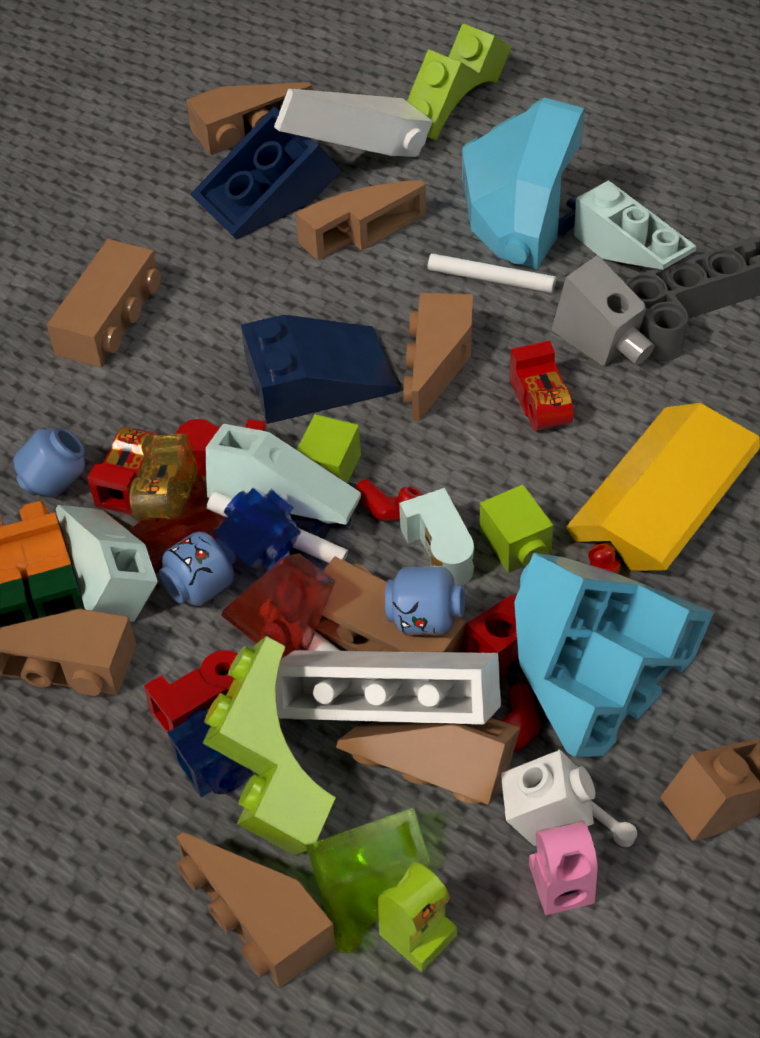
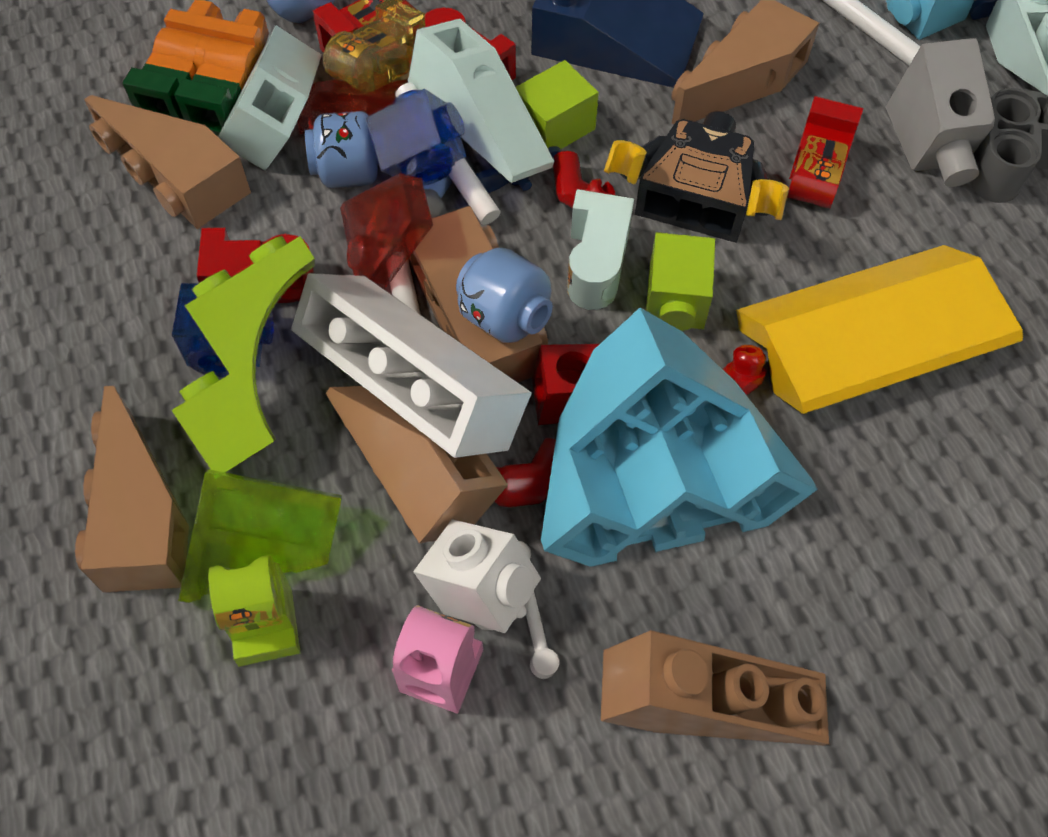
camera: 30 degrees right, 10 degrees up
(477, 447) = (699, 177): none -> torso

